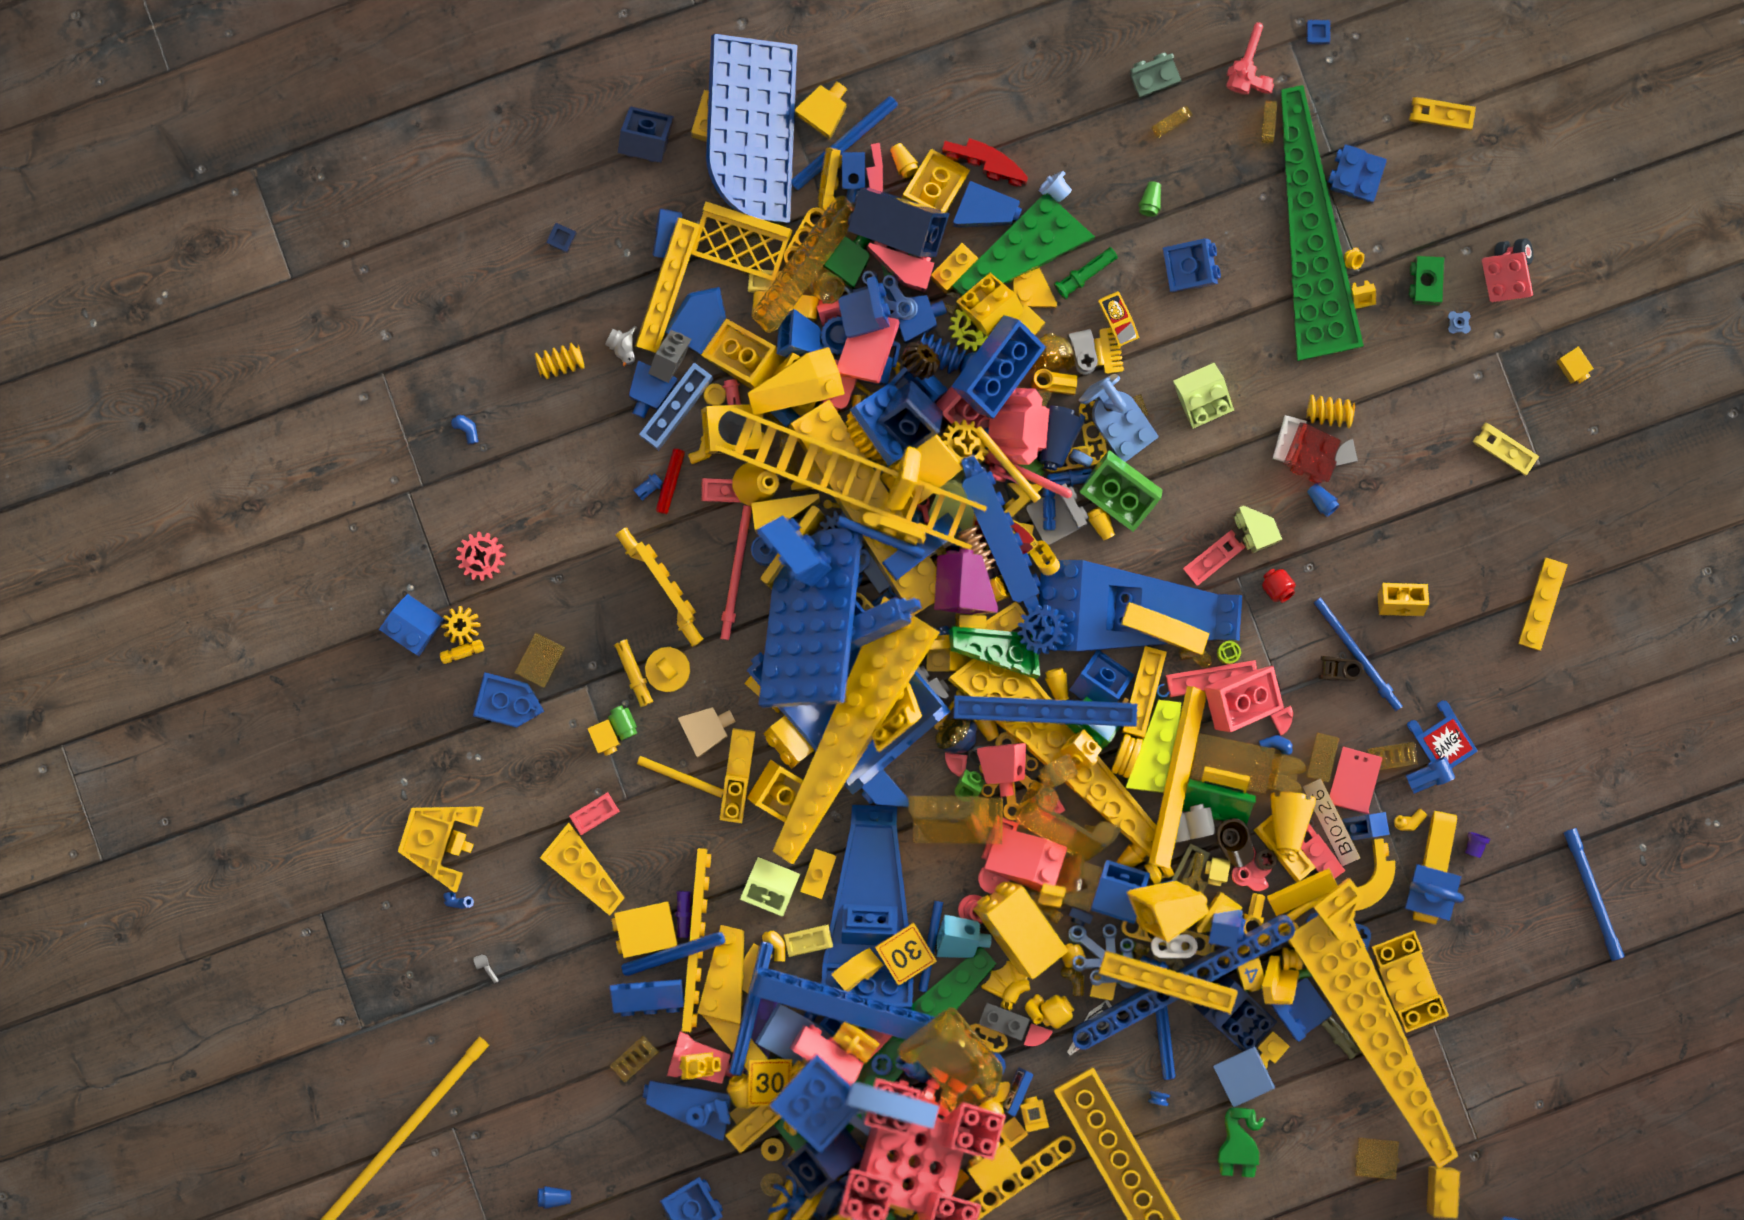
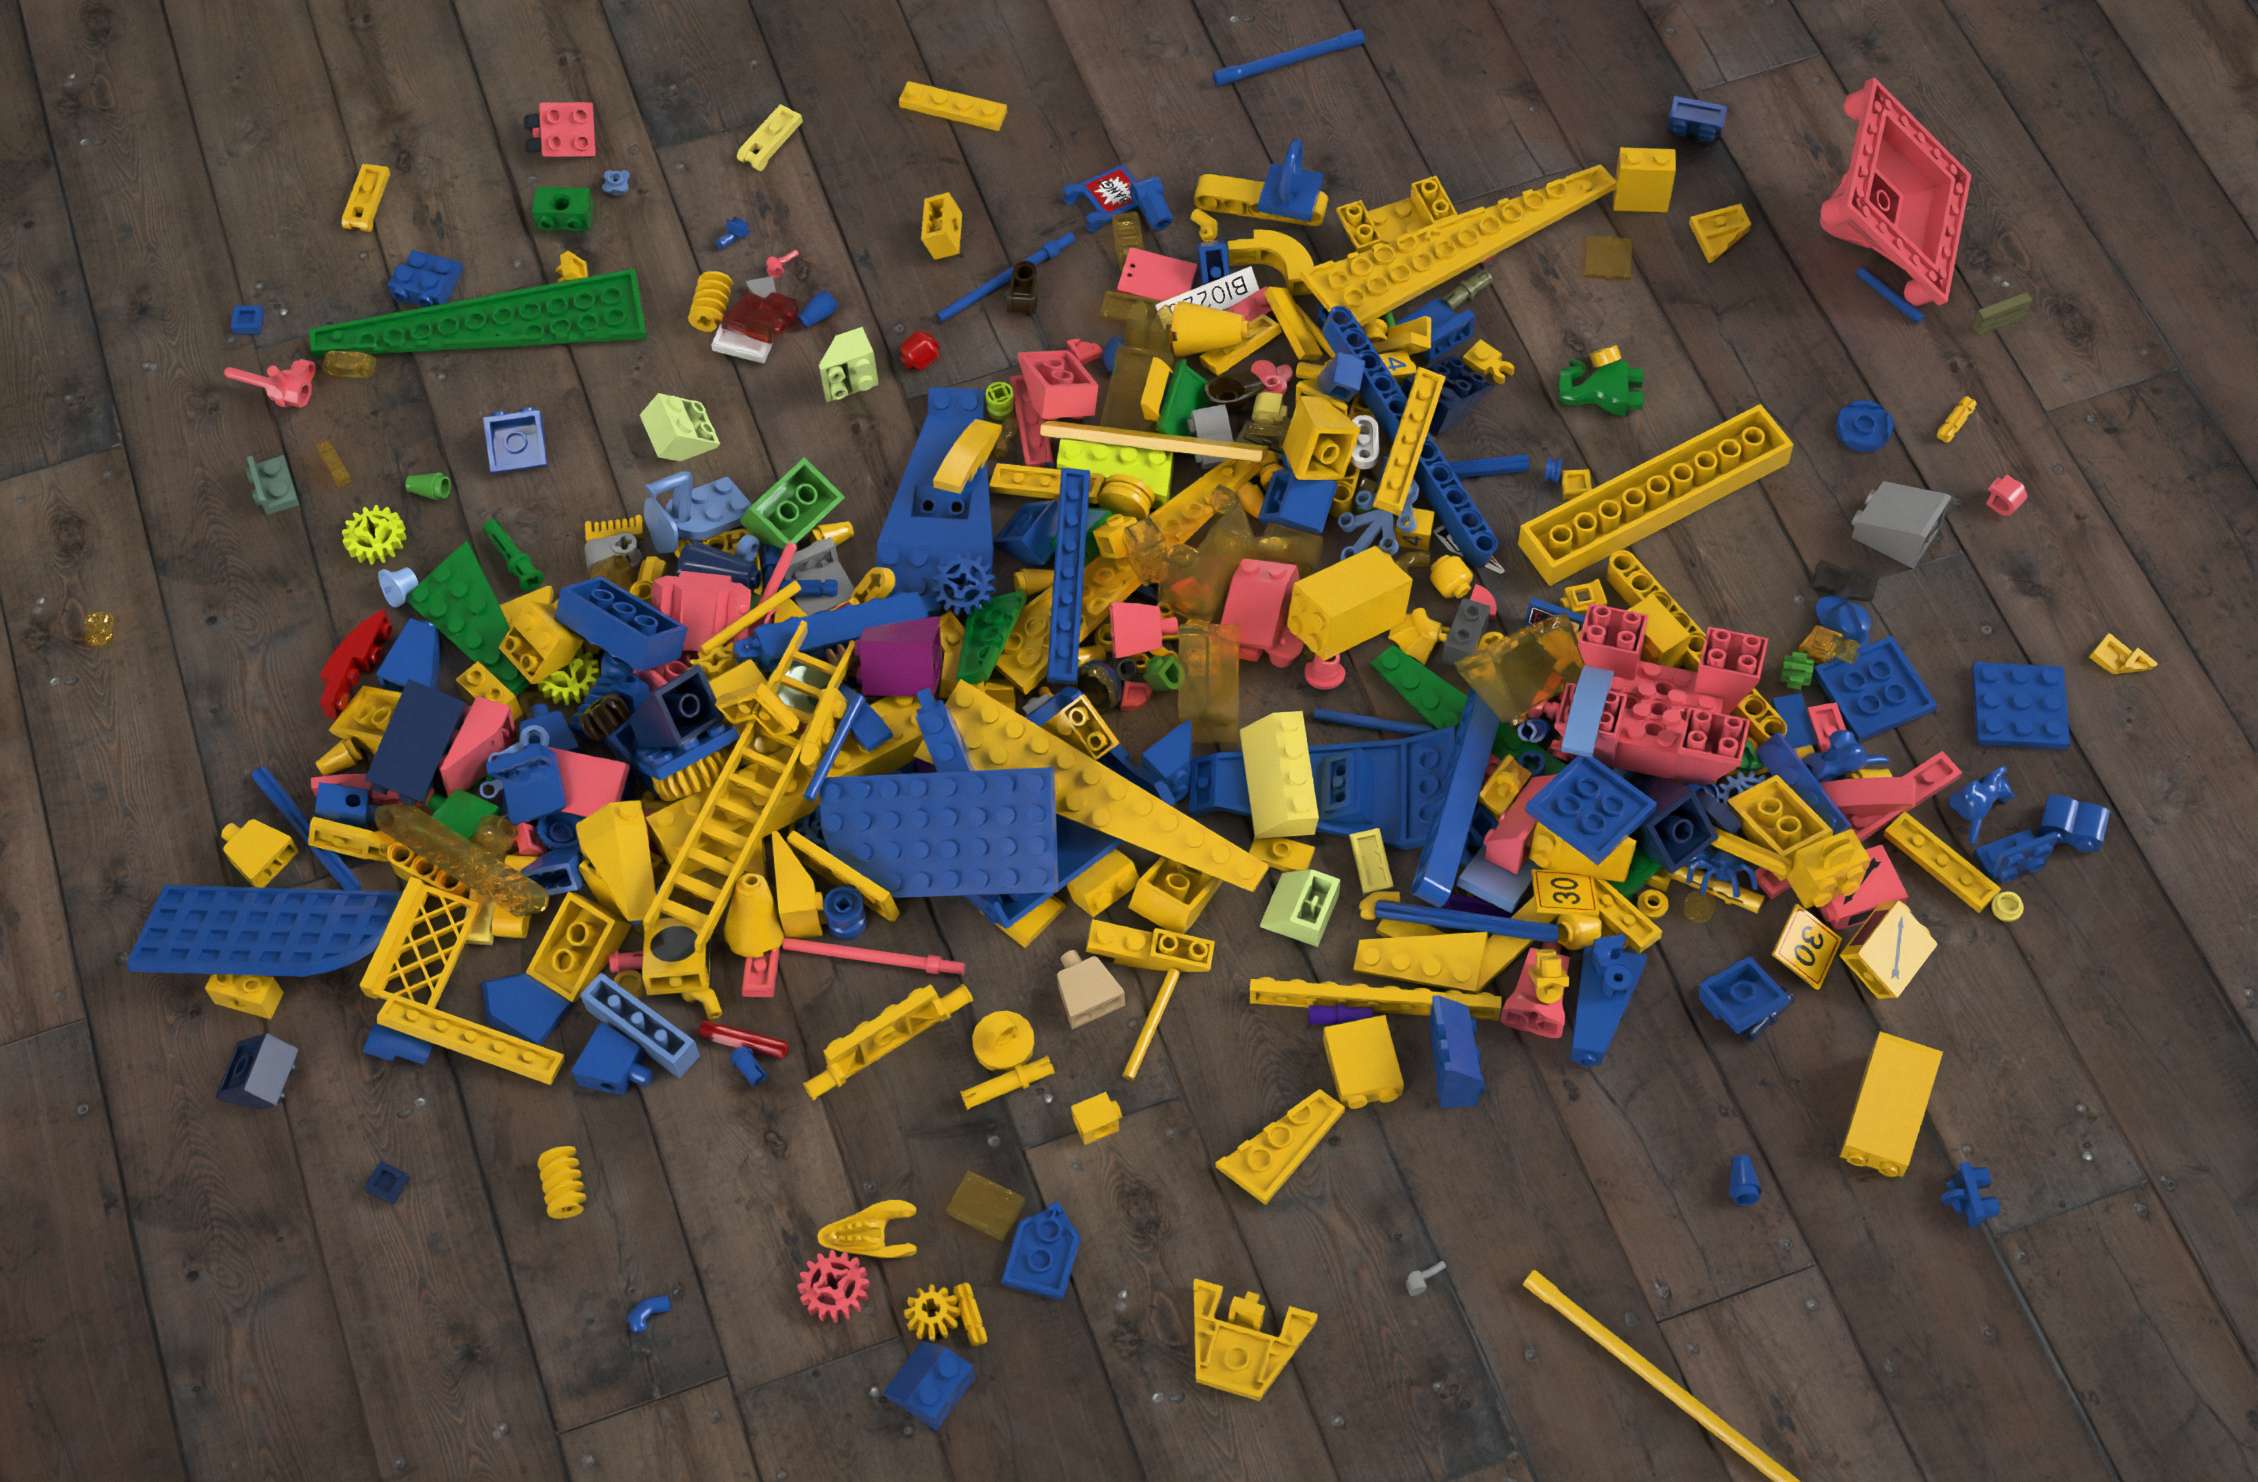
camera: 90 degrees left, 25 degrees down
(460, 903) = (1332, 1311): blue arm -> none
(519, 576) = (864, 1231): none -> yellow animal
(594, 813) = (1203, 1131): coral plate -> none
(622, 345) = (547, 1100): light grey animal -> none
(622, 722) = (1074, 1092): bright green brick -> none
(647, 1045) = (1525, 1076): clear yellow slope -> none
(669, 356) = (568, 1029): dark grey brick -> none
(673, 953) = (1395, 1019): blue axle -> none
(795, 550) = (847, 842): blue wedge -> none
(856, 969) = (1408, 796): yellow slope -> none
(871, 872) = (1279, 776): none -> light yellow slope
(905, 954) = (1385, 738): yellow piece -> none
(945, 377) = (631, 690): none -> blue plate
(960, 938) = (1362, 681): medium azure torso -> none
(1032, 1008) = (1451, 602): yellow arm -> none
(1051, 895) = (1300, 563): yellow slope -> none
(1080, 917) = (1329, 553): dark blue plate -> none
(1112, 158) = (388, 532): none -> neon yellow gear
(1118, 318) = (565, 519): slope -> none
(1149, 1116) = (1575, 483): none -> yellow tile
(1213, 558) = (883, 419): coral plate -> none
(1244, 1076) = (1520, 383): medium blue tile -> none
(1264, 1146) = (1605, 356): none -> yellow beam
(1272, 859) = (1254, 360): dark brown bush -> none
(1339, 907) = (1311, 270): yellow wing -> none
(1353, 258) = (527, 279): yellow plate -> none
(1370, 461) = (775, 265): none -> coral hand
(1407, 428) = (736, 228): none -> blue plate
(1476, 844) = (1233, 161): dark purple piece -> none
(1575, 366) = (677, 73): yellow brick -> none

